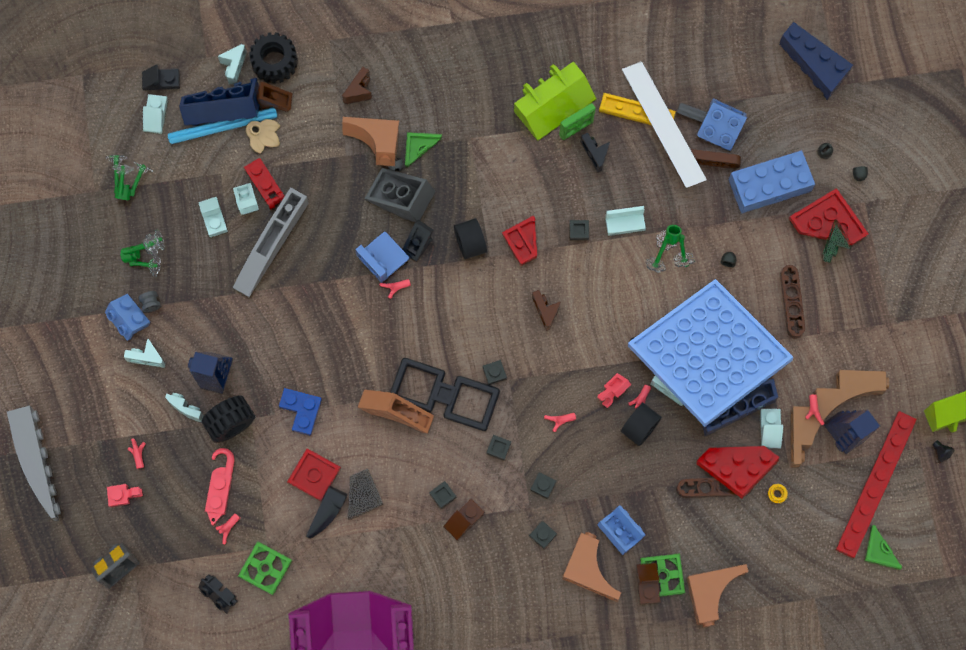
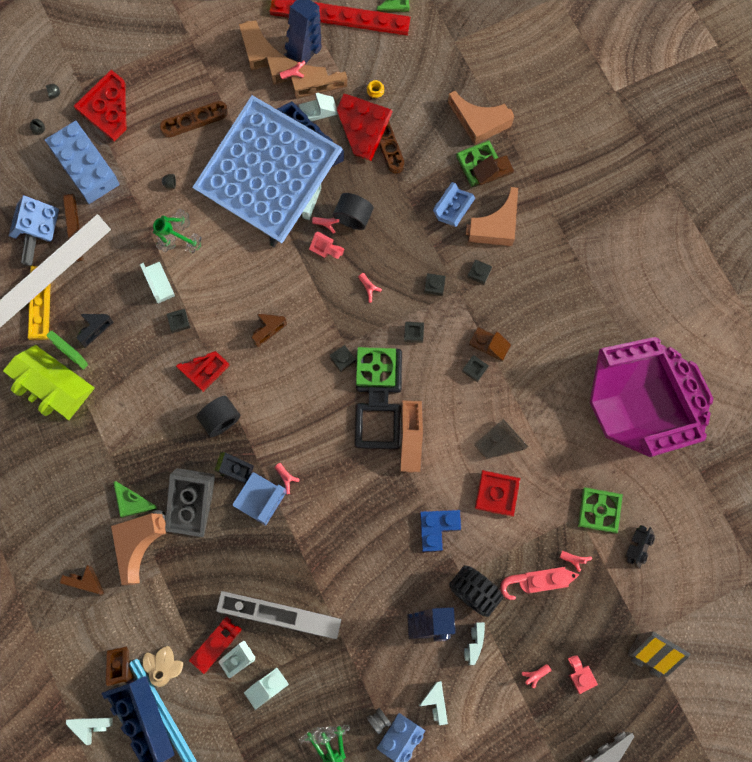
camera: 110 degrees left, 0 degrees up
(270, 44) = (55, 684): black tyre -> none
(327, 511) = (525, 469): black piece -> none
(482, 417) = (389, 382): none -> bright green piece
(836, 238) = (125, 92): clear green slope -> none

